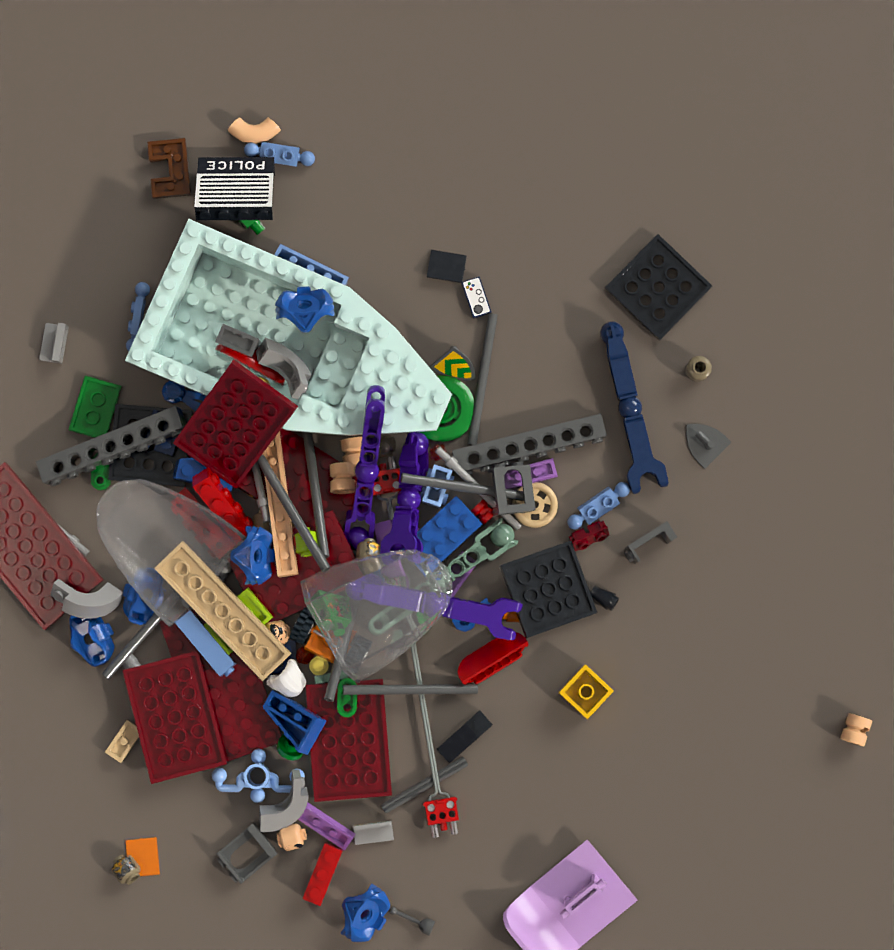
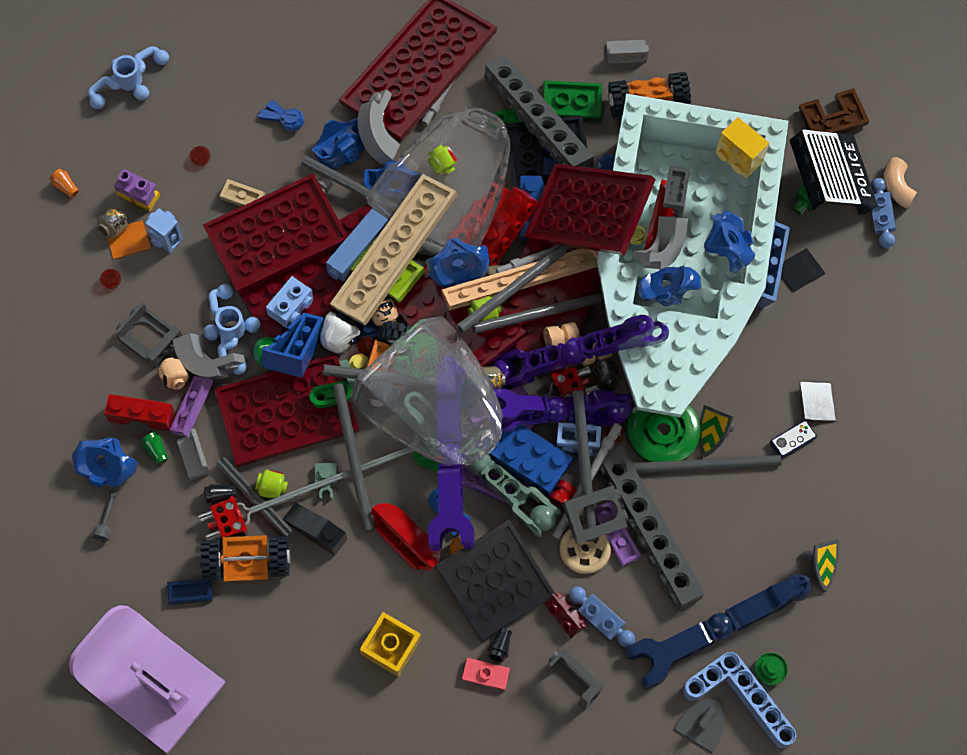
camera: 80 degrees right, 15 degrees down
(53, 680) = (290, 119): none -> blue piece
(71, 774) = (200, 155): none -> clear red plate
(72, 908) = (63, 182): none -> orange cone
(96, 840) = (136, 190): none -> medium lavender hips
(110, 335) = (676, 91): none -> plate
(142, 546) = (442, 160): none -> lime head
(147, 821) = (164, 230): none -> light blue brick
(181, 880) = (110, 278): none -> clear red plate
(215, 271) = (742, 147): none -> yellow brick
(248, 719) = (290, 302): none -> light blue brick
(316, 243) = (801, 270): none -> black window
(329, 358) = (681, 279): none -> blue piece
(358, 865) = (154, 446): none -> green cone
(414, 815) = (218, 493): none -> black cone
(415, 718) = (324, 471): none -> sand green plate
(417, 767) = (271, 484): none -> lime head
(481, 803) = (245, 558): none -> plate
(497, 857) = (189, 591): none -> dark blue tile
(593, 303) = (824, 561): none -> shield
(625, 615) = (486, 674): none -> coral plate
(671, 260) = (849, 633): black piece -> none
(674, 374) = (771, 669): none -> green plate
(690, 401) = (745, 694): none -> light blue beam
(701, 363) = (787, 699): dark tan head -> none

